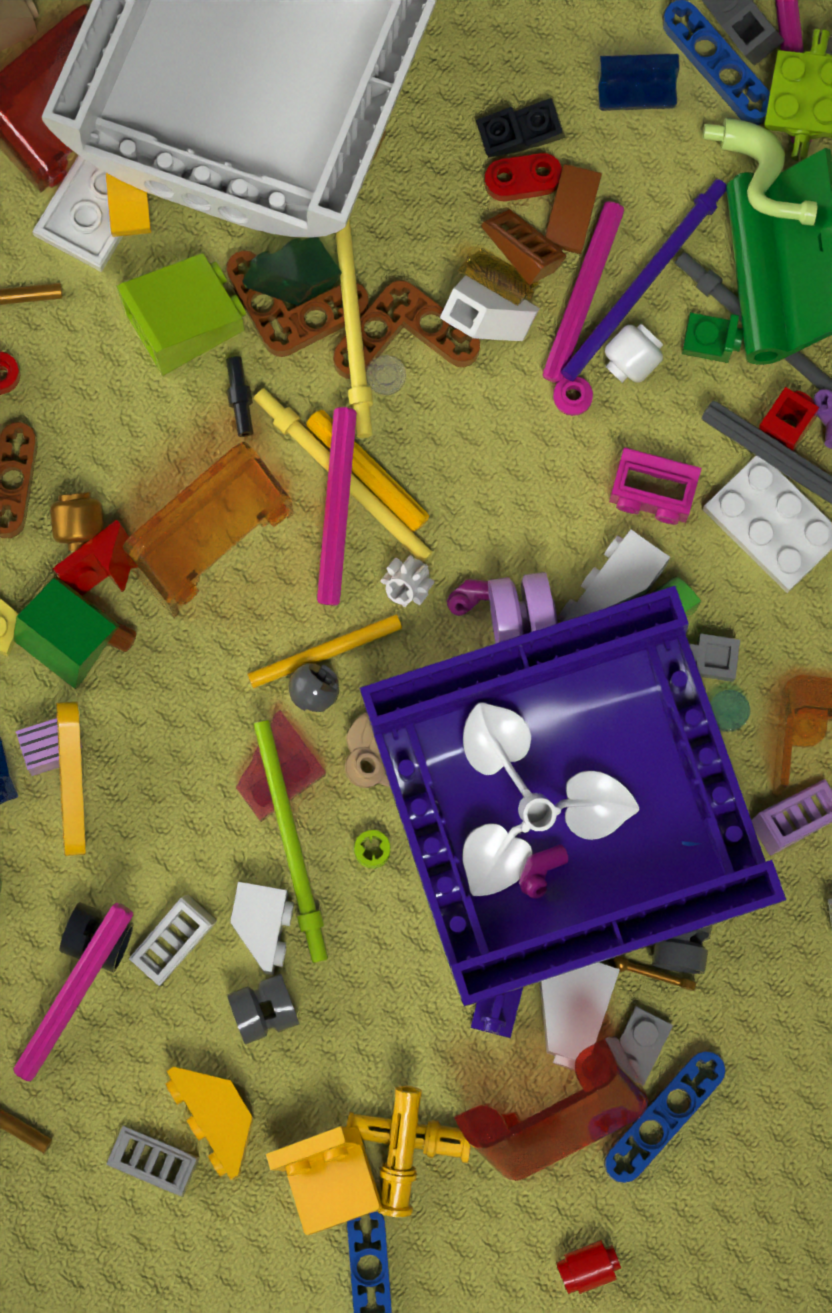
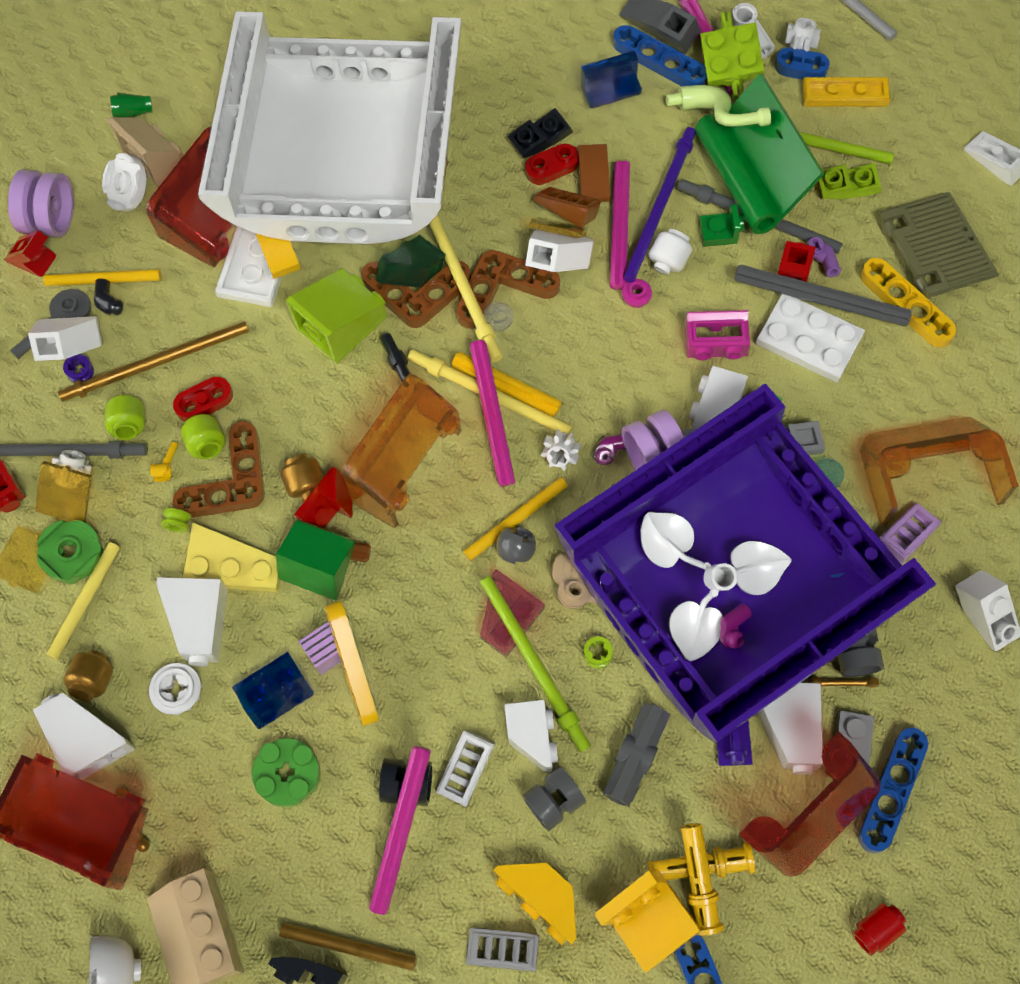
camera: 10 degrees left, 10 degrees down
(377, 986) = (636, 754): none -> dark grey piece

